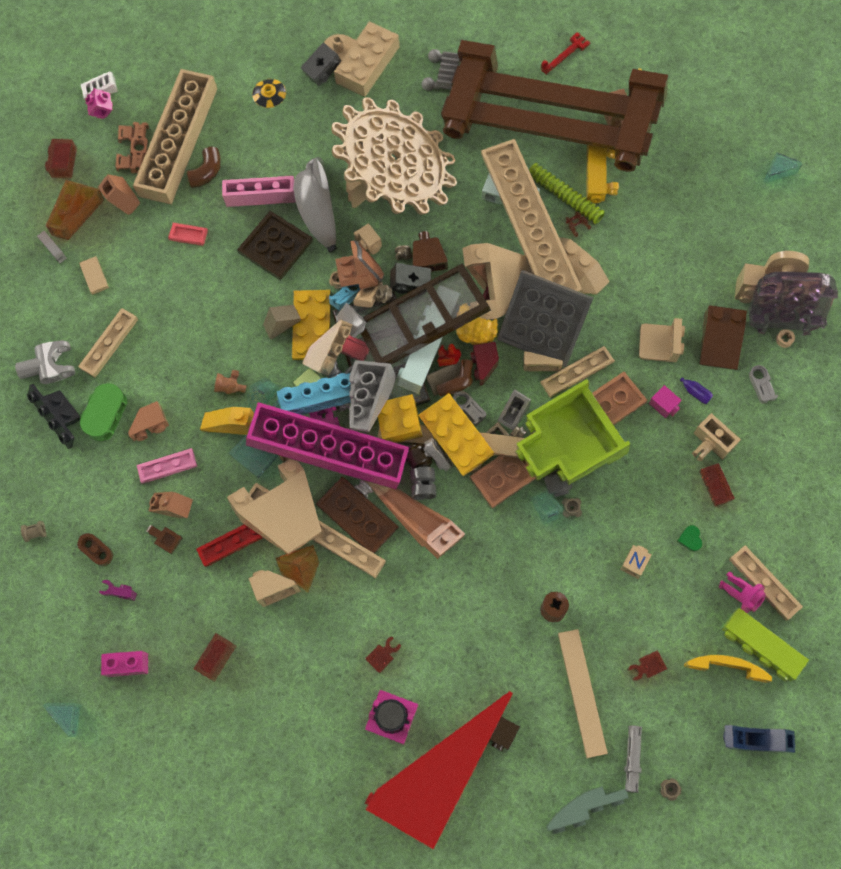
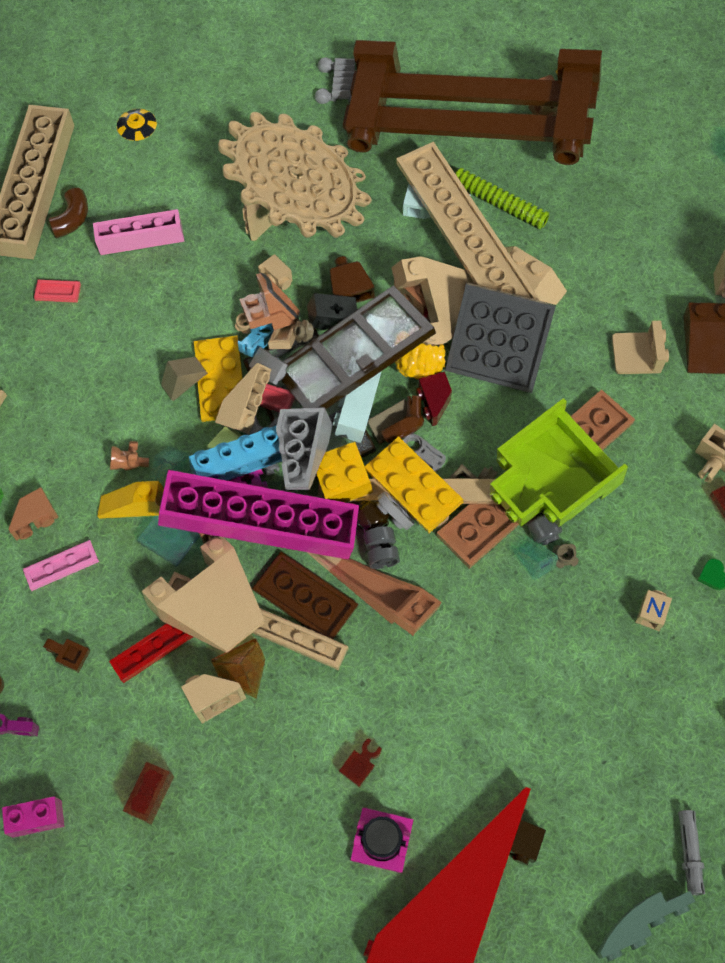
camera: 10 degrees left, 5 degrees down
(170, 504) = (71, 610): nougat slope -> none
(275, 245) = (164, 292): dark brown plate -> none
(315, 203) = (208, 239): light grey piece -> none
(321, 64) = (195, 85): dark grey brick -> none
(363, 58) = (240, 78): tan brick -> none
(364, 488) = (309, 562): light grey bush -> none
(403, 252) = (319, 283): dark tan bush -> none
(449, 356) = (390, 396): red tile -> none
(514, 410) = (479, 448): light grey slope -> none
(538, 362) = (501, 391): tan slope -> none
(546, 68) = (487, 36): red hinge -> none
(557, 600) = (565, 676): reddish brown piece -> none
(577, 371) = (545, 397): tan tile -> none
(582, 220) = (525, 226): clear red piece -> none
(582, 694) = (615, 780): tan tile -> none
(596, 174) = (533, 171): yellow brick -> none
(650, 665) = (692, 733): clear red plate -> none
(665, 402) = (656, 419): dark pink brick -> none
(697, 390) = (691, 402): dark purple piece -> none

